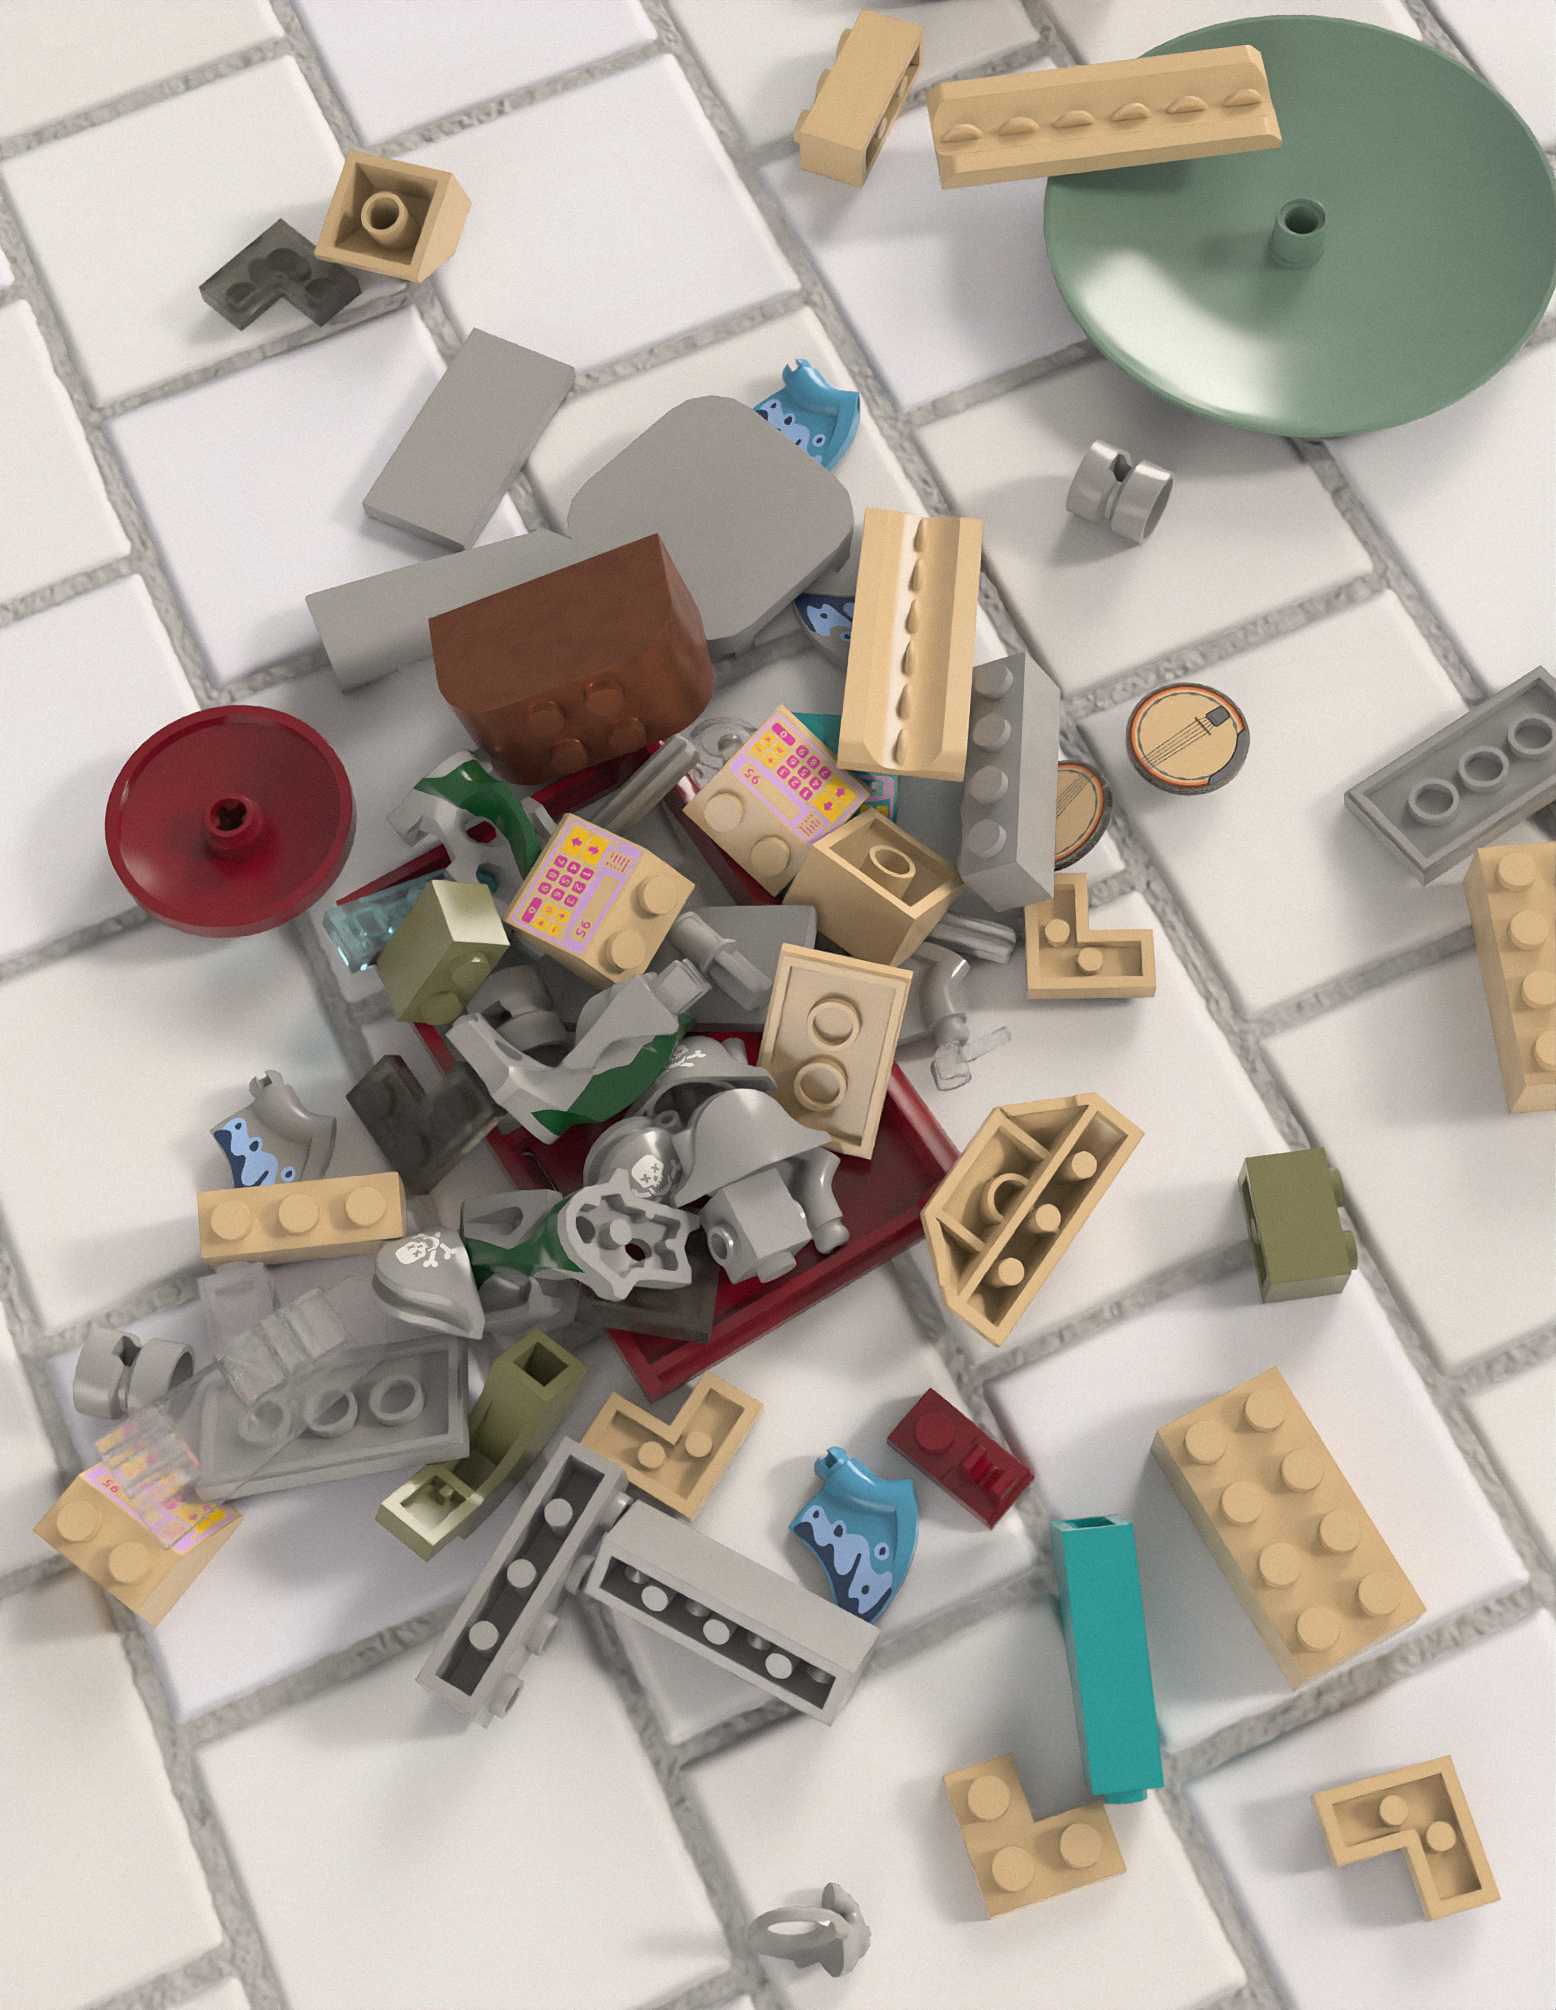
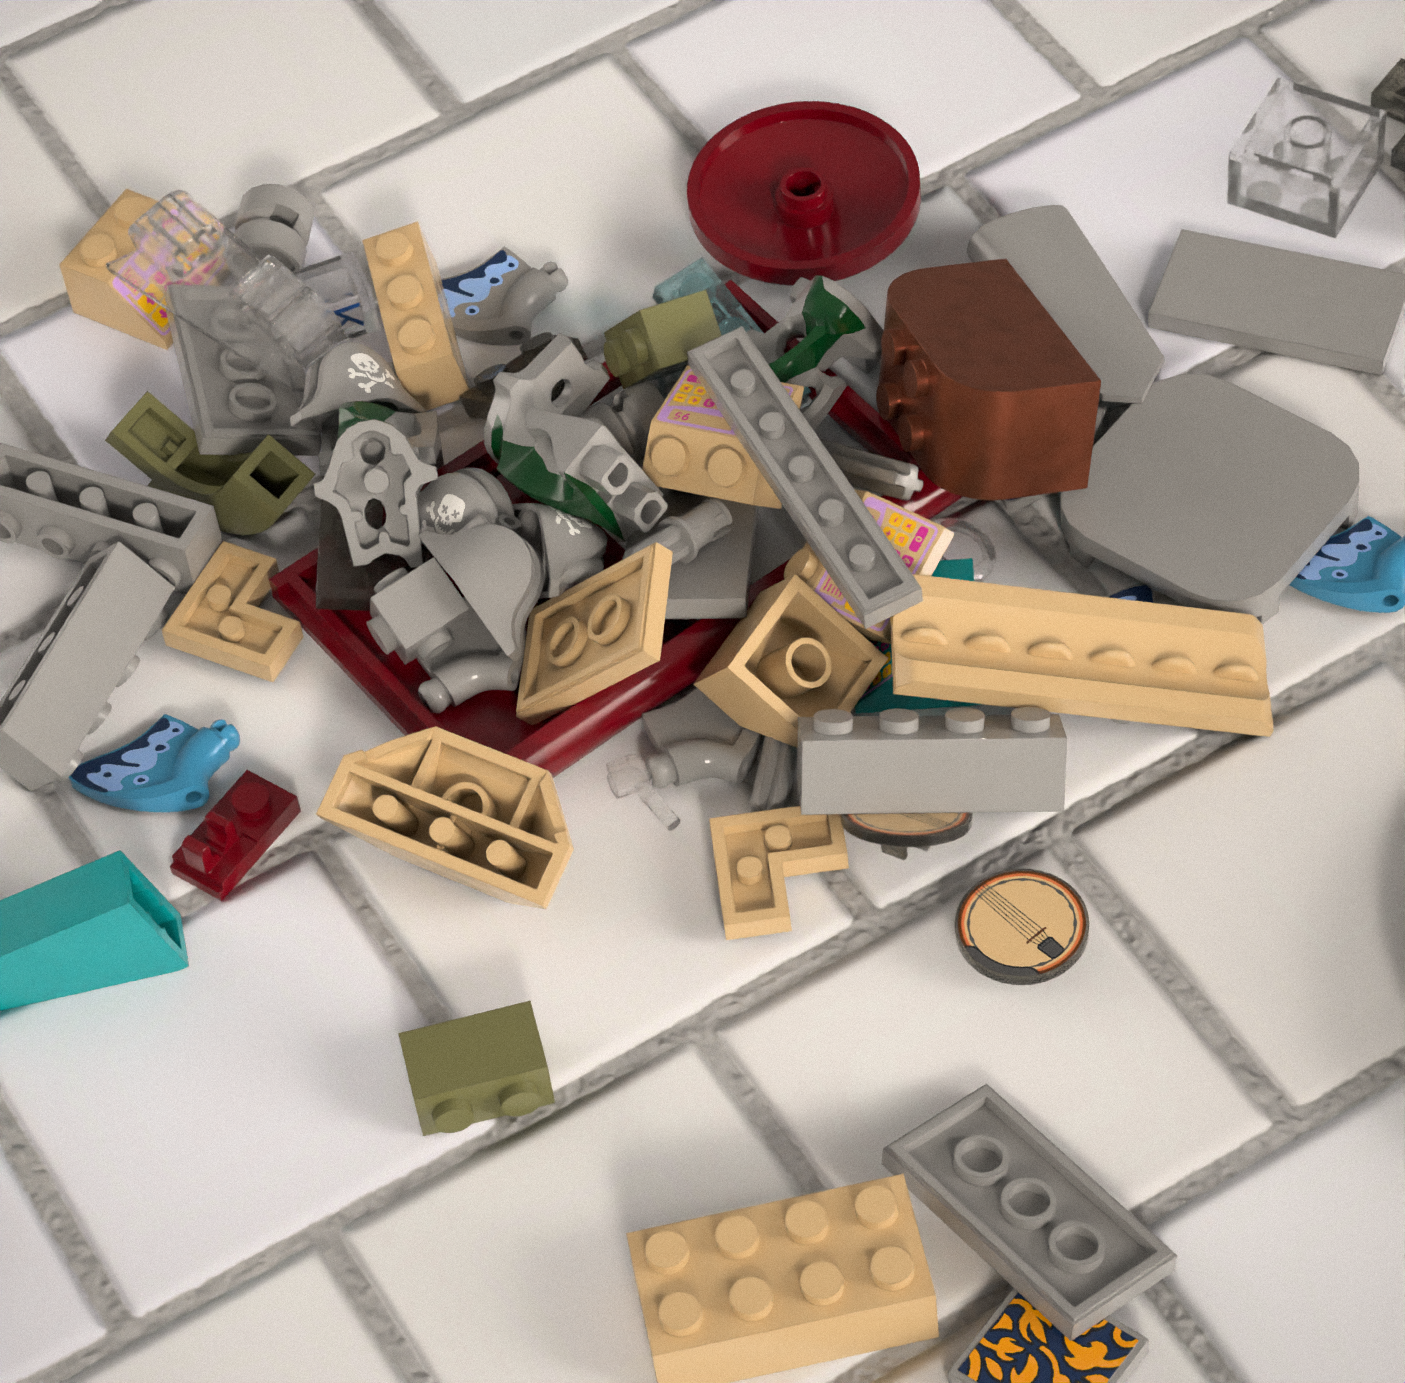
camera: 85 degrees right, 15 degrees down
(315, 377) = (1306, 157): none -> clear brick
(702, 815) = (805, 478): none -> light grey tile
(1120, 491) = (1321, 834): light grey wheel -> none
(1286, 1528) = (164, 1081): tan brick -> none

